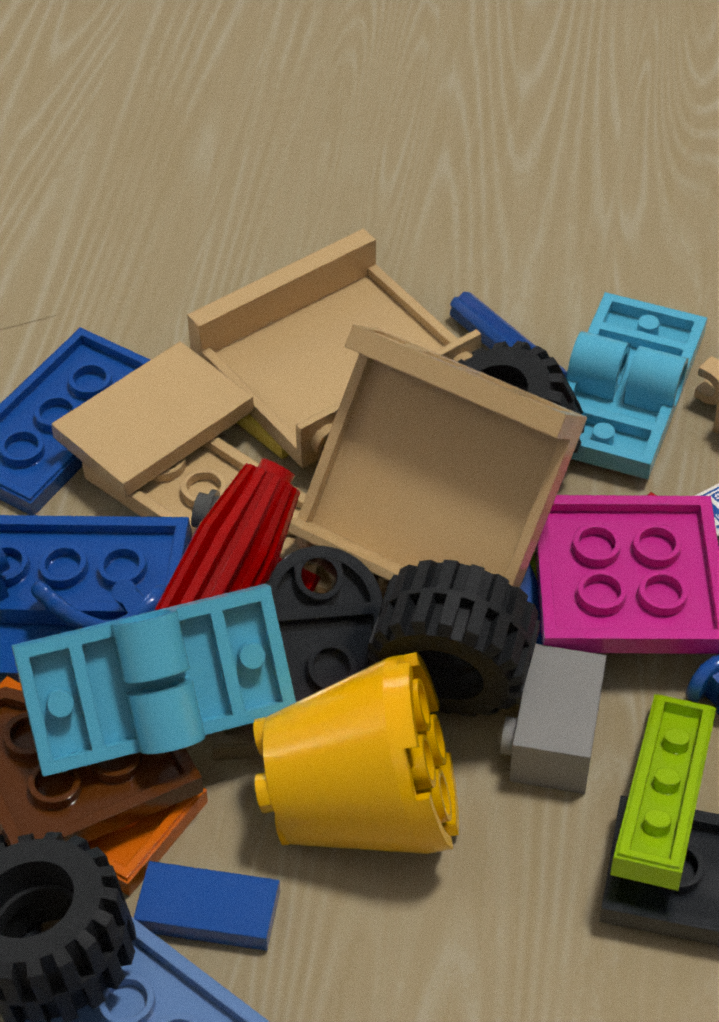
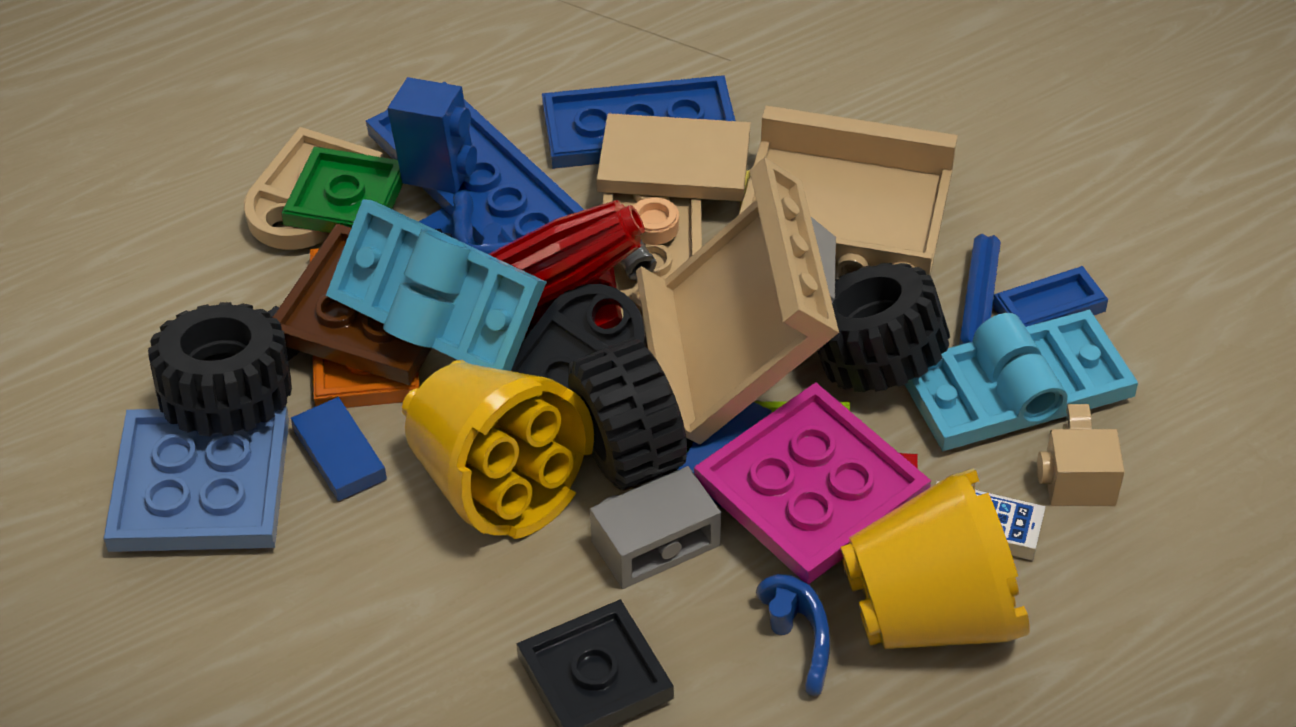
camera: 50 degrees right, 0 degrees up
(208, 473) = (659, 219): none -> light nougat tile
(560, 311) = (1052, 297): none -> blue tile
(664, 793) = (645, 618): lime tile -> none

